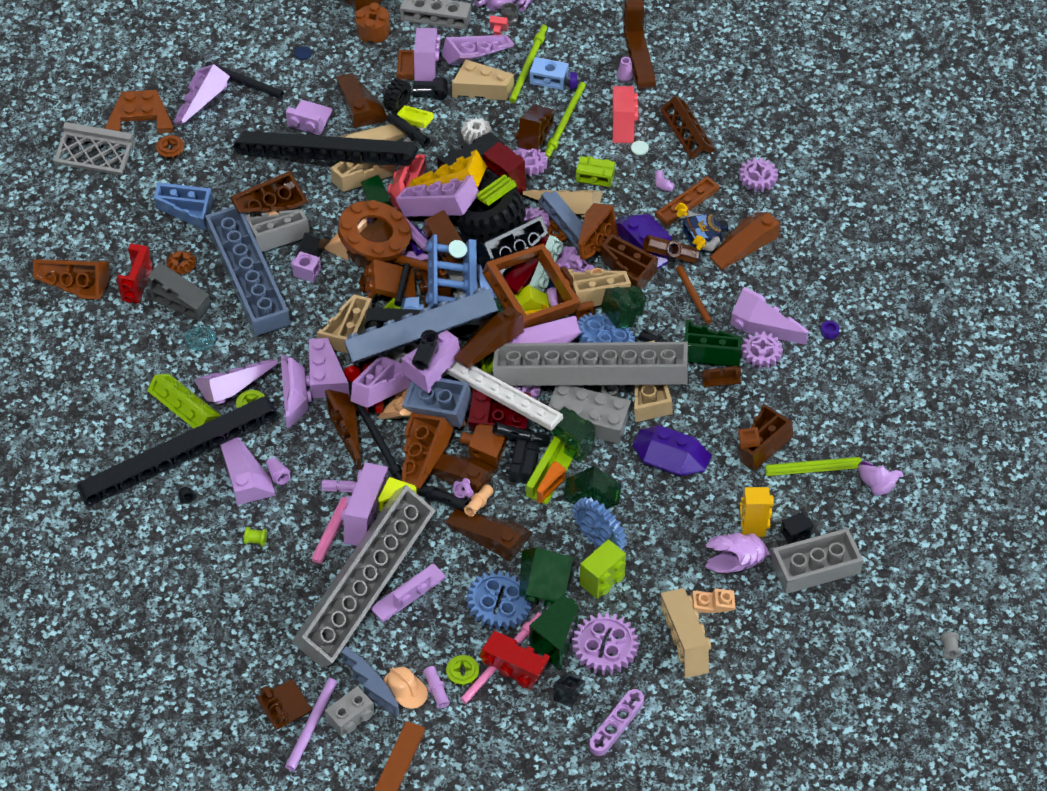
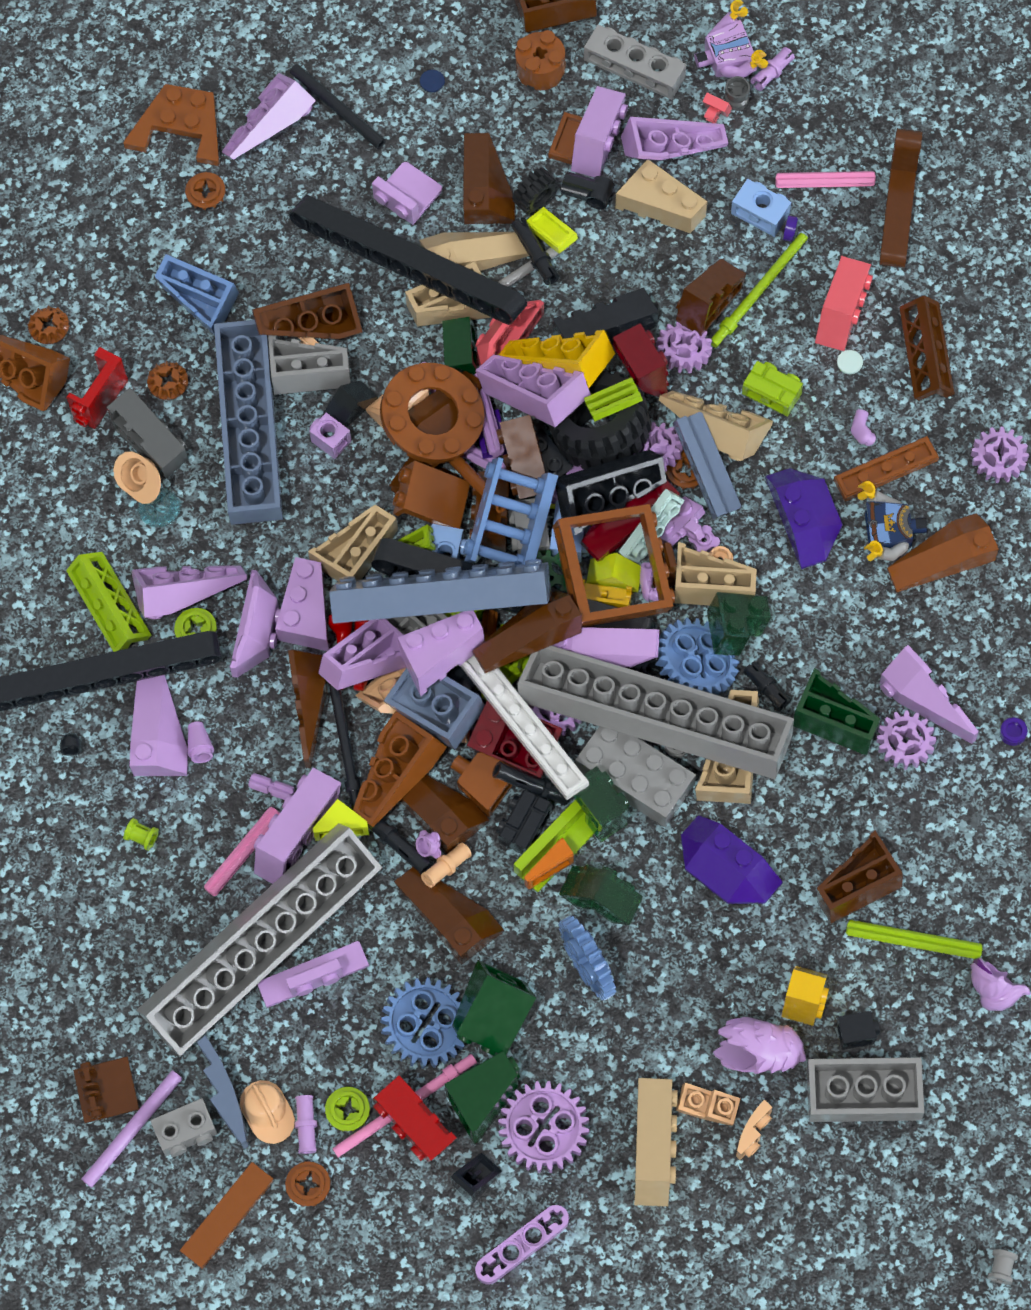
camera: 20 degrees right, 15 degrees up
(89, 253) = (50, 334): none -> dark orange gear
(101, 136) = (117, 153): light grey fence -> none
(180, 319) = (137, 477): none -> light nougat piece
(402, 284) = (444, 508): black bar -> none
(426, 350) = (427, 643): black piece -> none
(443, 720) = (300, 1173): none -> dark orange gear
(457, 249) = (528, 483): light aqua piece -> none
(474, 129) = (619, 273): white gear -> none
(538, 40) = (765, 146): lime bar -> none
(584, 308) = (683, 609): dark orange tile -> none
(585, 50) = (825, 179): none -> bright pink axle
(596, 228) = (740, 491): dark orange wedge -> none
(602, 569) = (574, 1021): lime brick -> none
(624, 256) = (768, 551): reddish brown wedge -> none
(625, 70) = (869, 231): lavender cone -> none
(661, 247) = (819, 541): reddish brown piece -> none
(692, 292) = (843, 621): dark orange bar -> none
(721, 377) = (836, 765): reddish brown hinge -> none
(749, 437) = (834, 881): dark orange tile -> none
(750, 609) = (750, 1136): none -> light nougat slope

